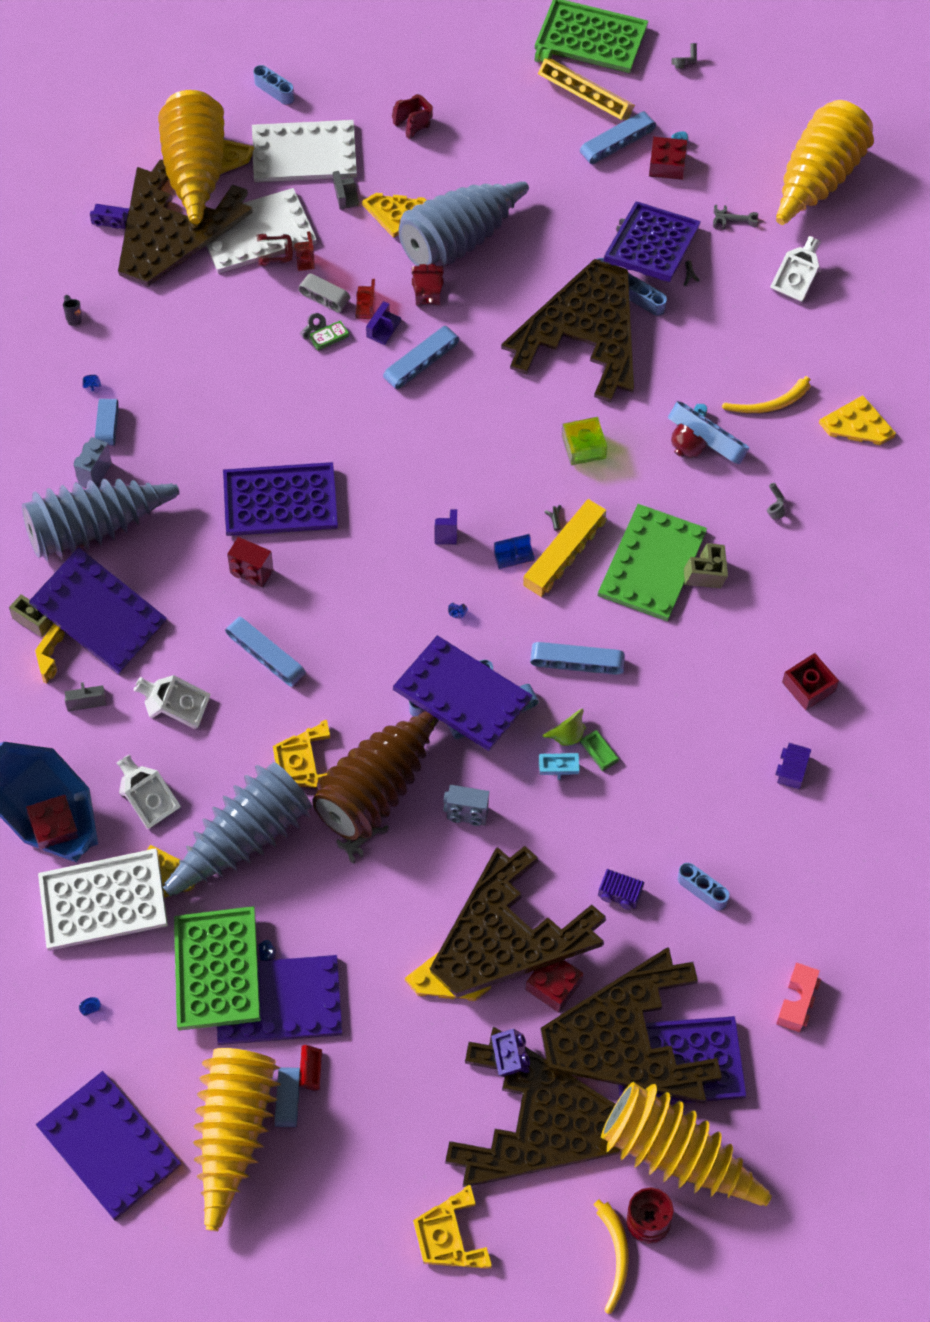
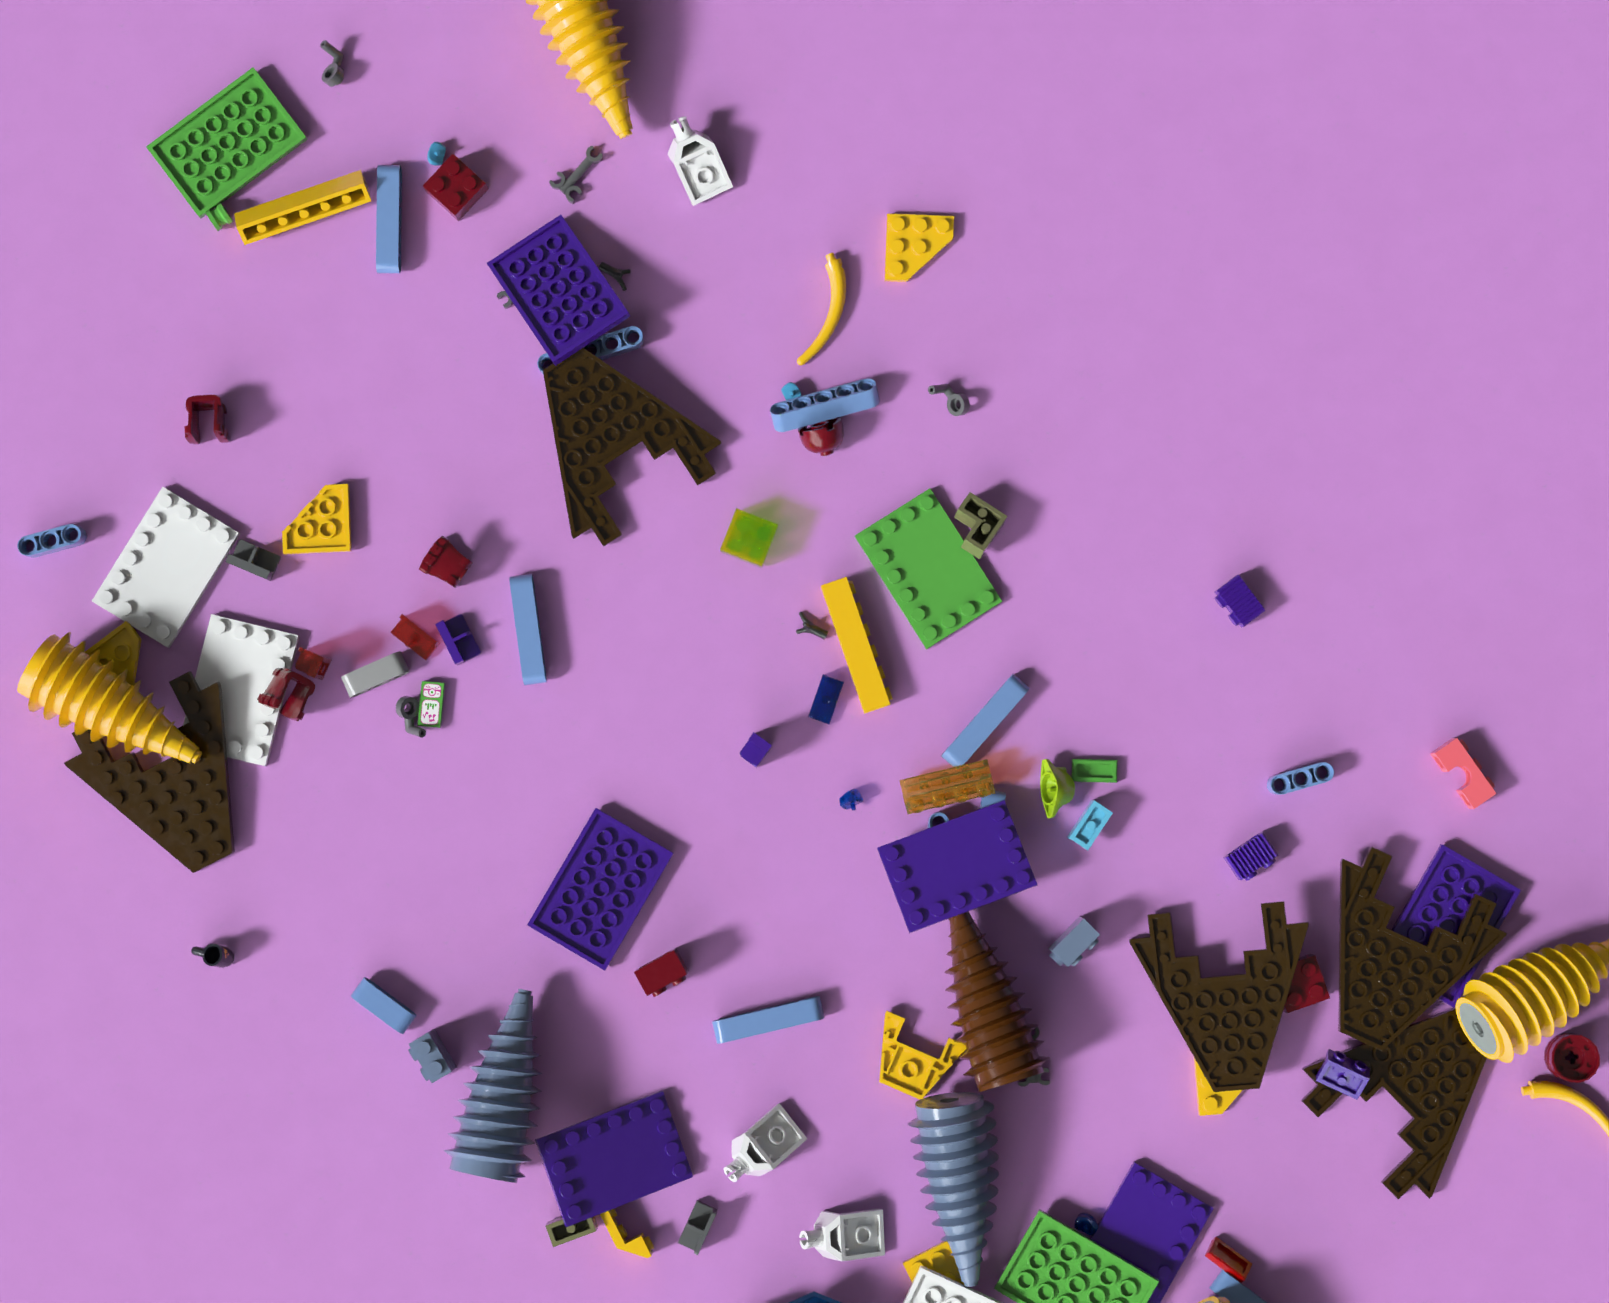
camera: 55 degrees left, 25 degrees up
(91, 381) = (320, 990): clear blue piece -> none
(109, 216) = (110, 834): dark purple bracket -> none
(440, 1235) = (1461, 1248): yellow wing -> none
(456, 221) = (393, 478): sand blue cone -> none
(514, 658) = (947, 786): none -> clear yellow brick
(810, 681) = (1168, 520): dark red brick -> none

